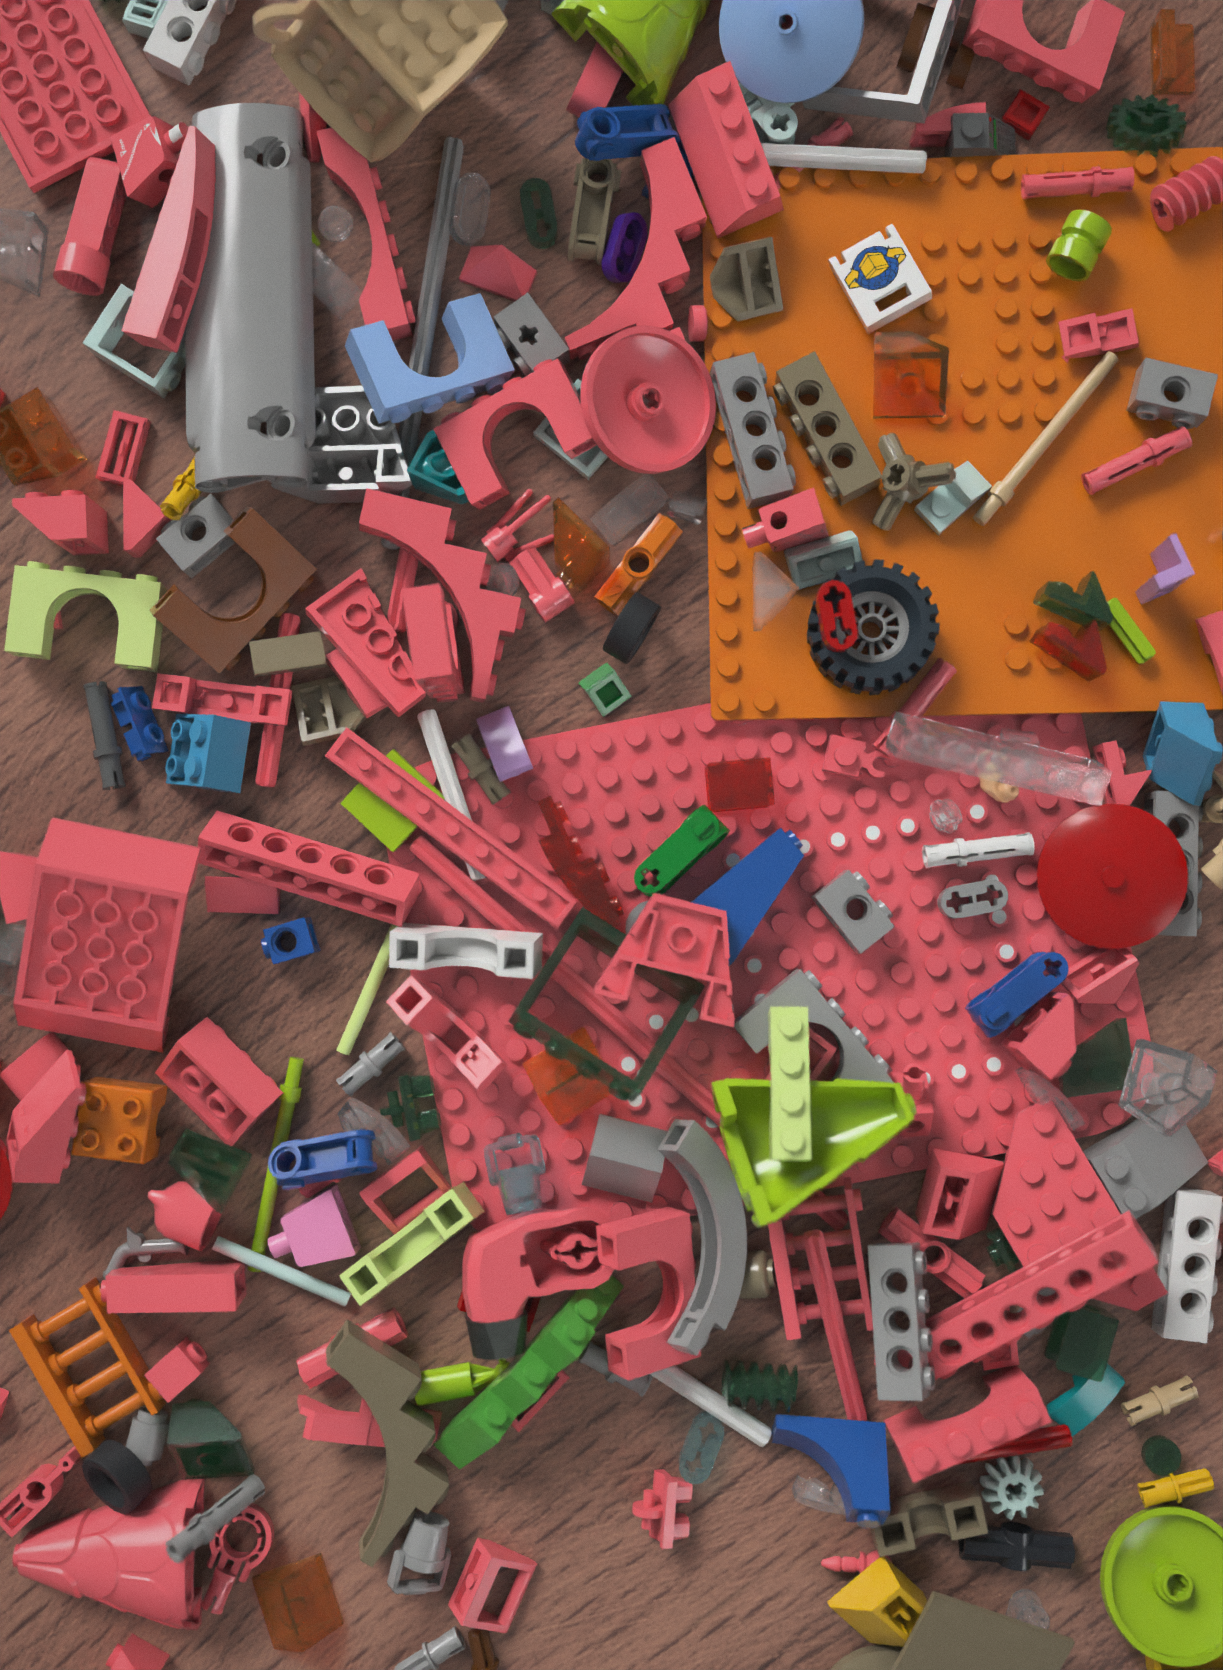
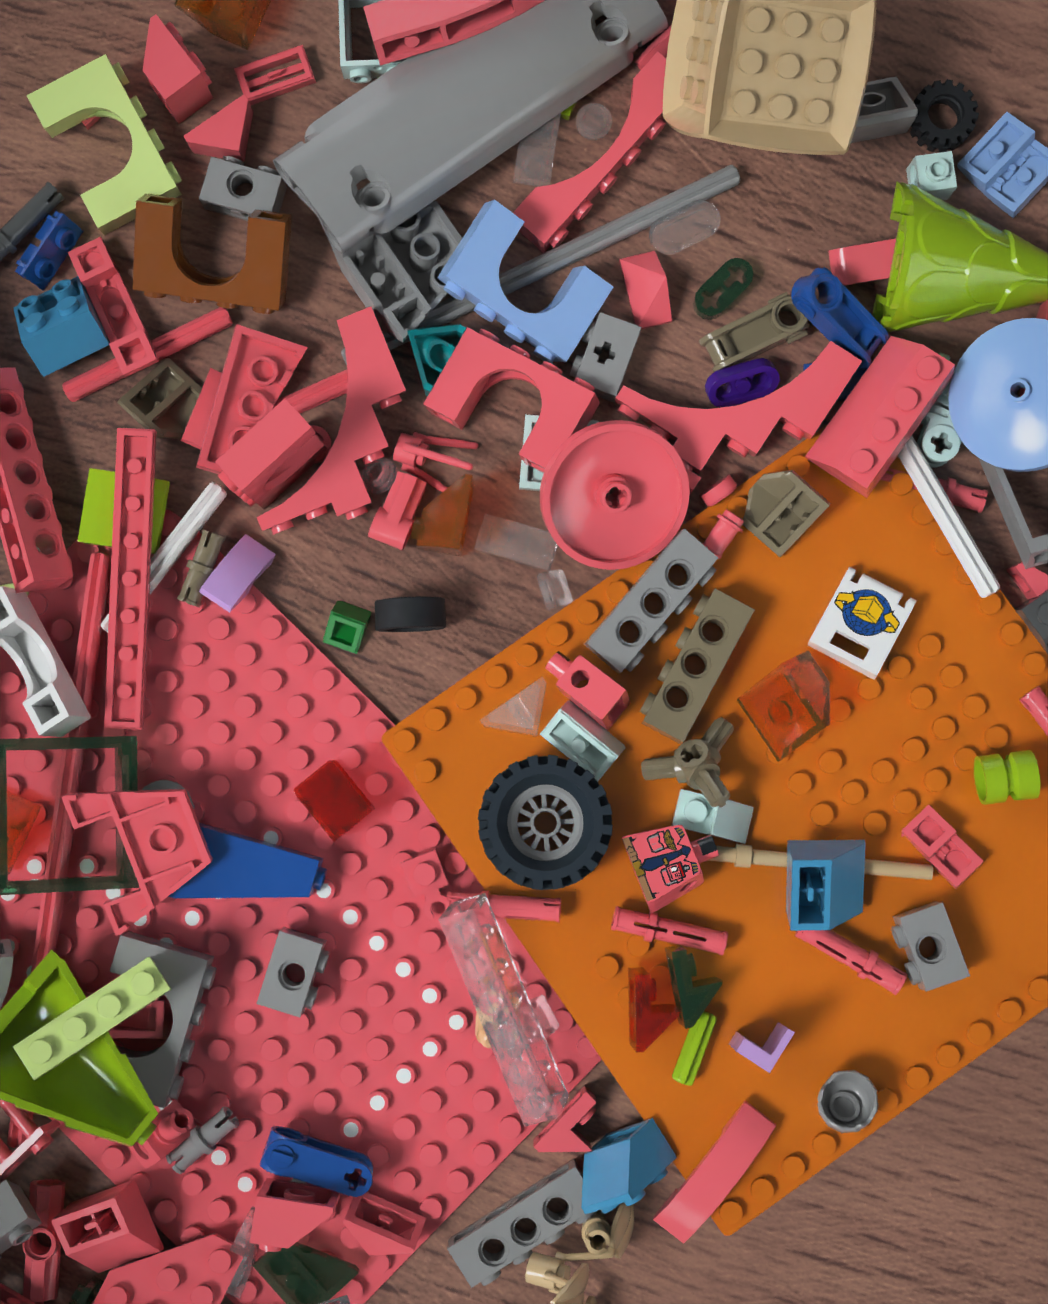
camera: 55 degrees right, 0 degrees up
(181, 494) = (262, 152): yellow pin -> none
(287, 654) = (189, 335): dark tan slope -> none
(582, 878) = (163, 718): clear red slope -> none
(651, 547) = (446, 582): orange piece -> none
(681, 851) = (243, 788): green piece -> none
(734, 336) = (723, 533): none -> coral pin
(827, 617) = (534, 792): red beam -> none
(938, 1072) = (202, 1140): none -> light grey pin
(945, 815) = (430, 996): clear plate -> none
(968, 553) = (667, 863): none -> torso
(974, 907) = (368, 1075): light grey beam -> none
(977, 850) = (425, 1051): white pin -> none
(992, 618) = (713, 940): none -> coral pin
(1066, 441) = (824, 882): none -> dark azure slope
(1112, 876) = (473, 1178): red dish -> none

